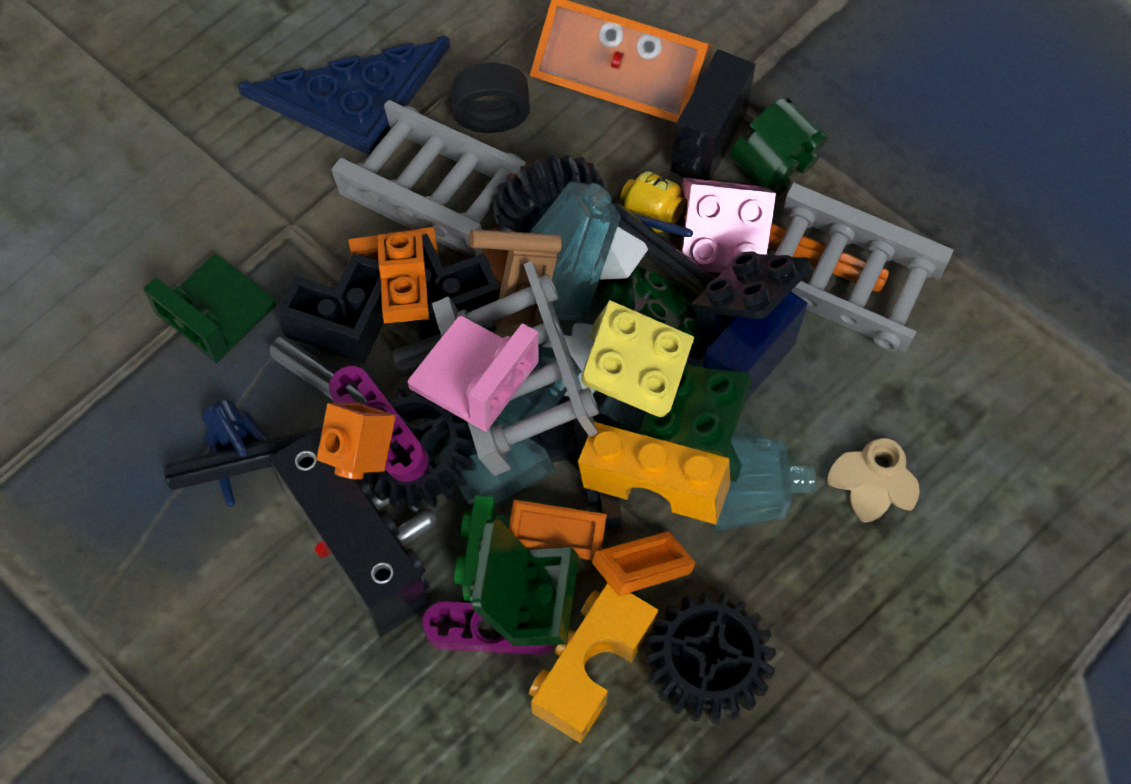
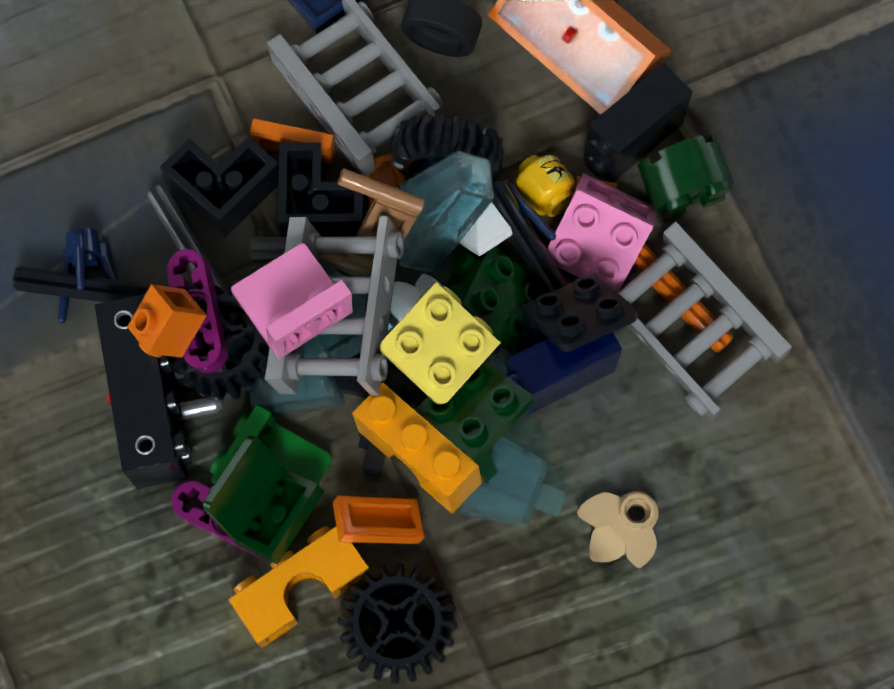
camera: 25 degrees right, 10 degrees up
(212, 306) = (116, 132): dark green bracket -> none
(402, 277) = (279, 178): orange slope -> none
(557, 527) = (317, 459): orange tile -> none

